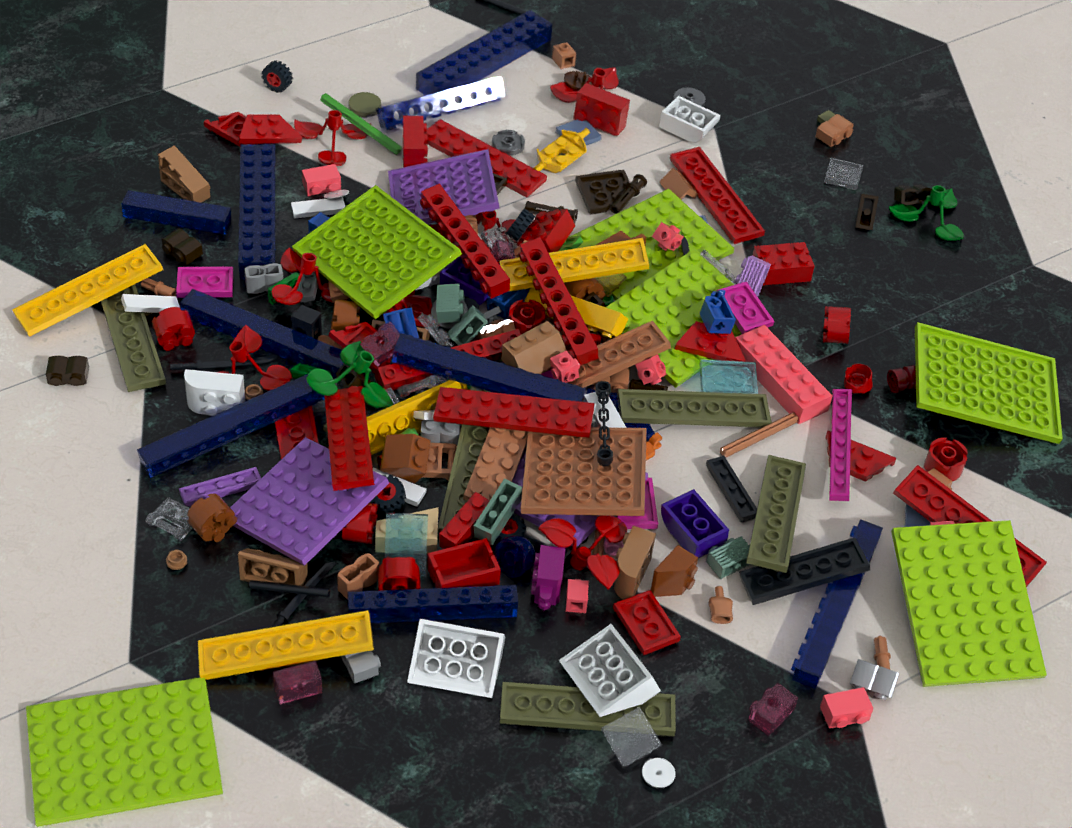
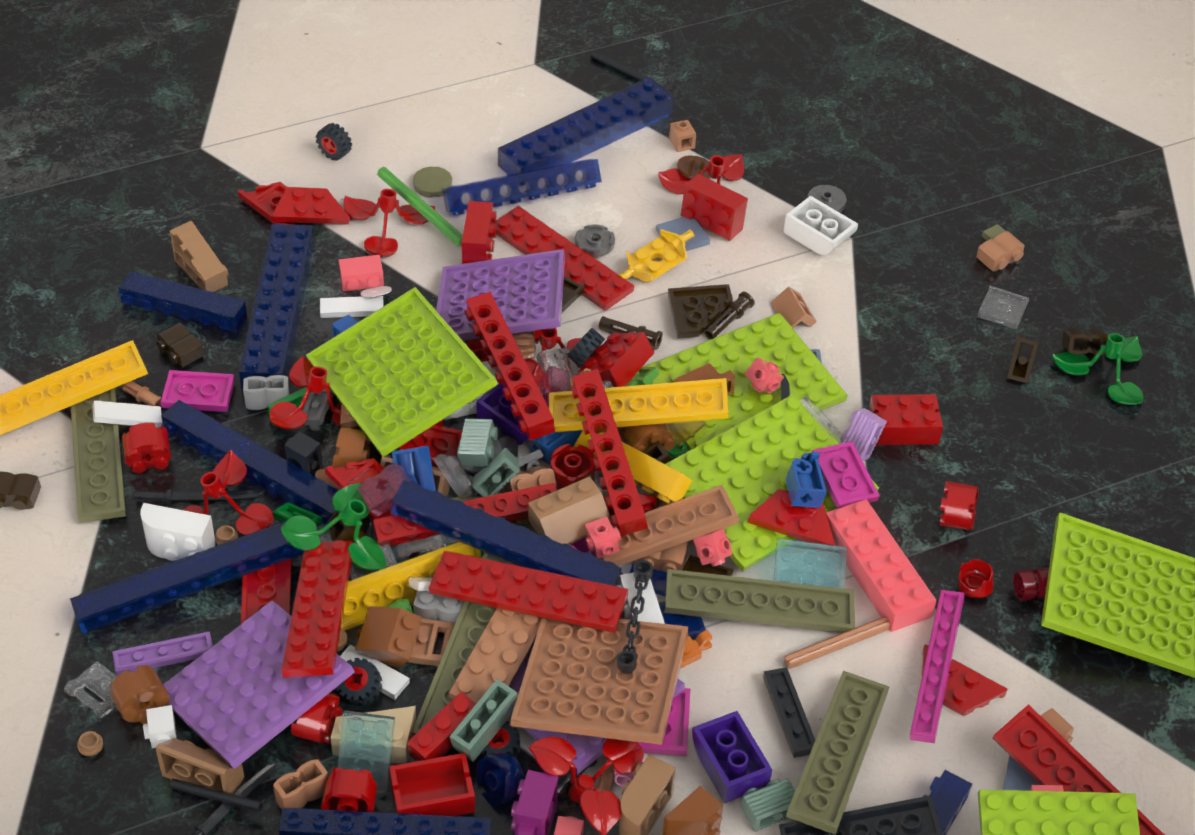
camera: 10 degrees right, 0 degrees up
(232, 541) = (160, 725): none -> white brick
(717, 195) = (839, 325): red plate -> none
(946, 457) = (1071, 696): red brick -> none

